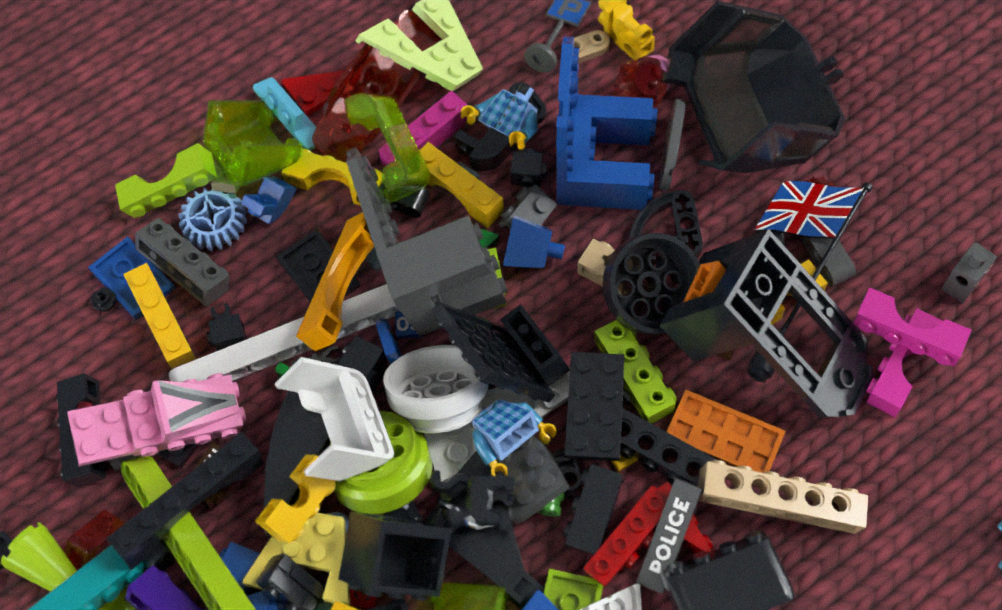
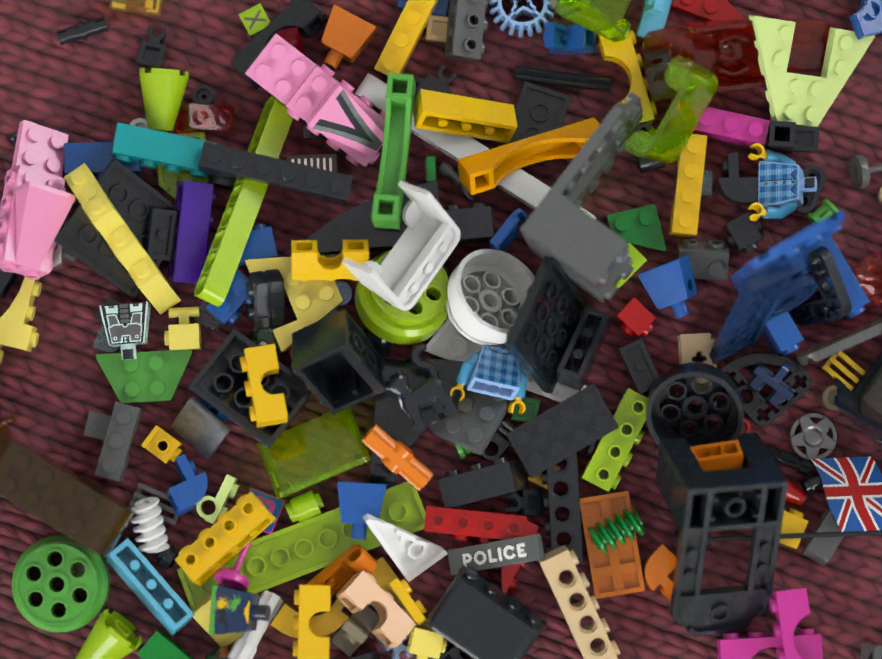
camera: 50 degrees right, 20 degrees up
(46, 441) = (254, 19): none -> lime tile
(69, 524) = (204, 90): none -> black plate
(122, 370) = (345, 36): none -> orange torso
(179, 298) = (437, 29): none -> tan tile
(247, 381) = (395, 150): none -> bright green arch
(264, 313) = (464, 116): none -> yellow brick
(297, 228) = (562, 79): none -> black axle
(350, 139) = (656, 73): none -> dark brown torso
(478, 86) = (789, 138): none -> black brick
(519, 562) = (397, 457): none -> orange piece
(539, 292) = (635, 319): none -> red brick
(549, 97) = (827, 206): none -> bright green bush
(560, 436) = (531, 411): none -> green tile
(581, 314) = (639, 365): none -> black plate
(598, 153) = (756, 304): none -> dark blue plate
(628, 123) = (830, 296): none -> black beam
(638, 481) = (526, 502): none -> black plate
(680, 214) = (764, 375): none -> dark blue hips
(690, 161) = (832, 360): none -> yellow tile
(713, 185) = (827, 397): none -> dark tan tile
(714, 415) = (616, 531): none -> green piece
(735, 219) = (813, 436): none -> flat silver wheel
(771, 408) = (657, 568): none -> orange brick

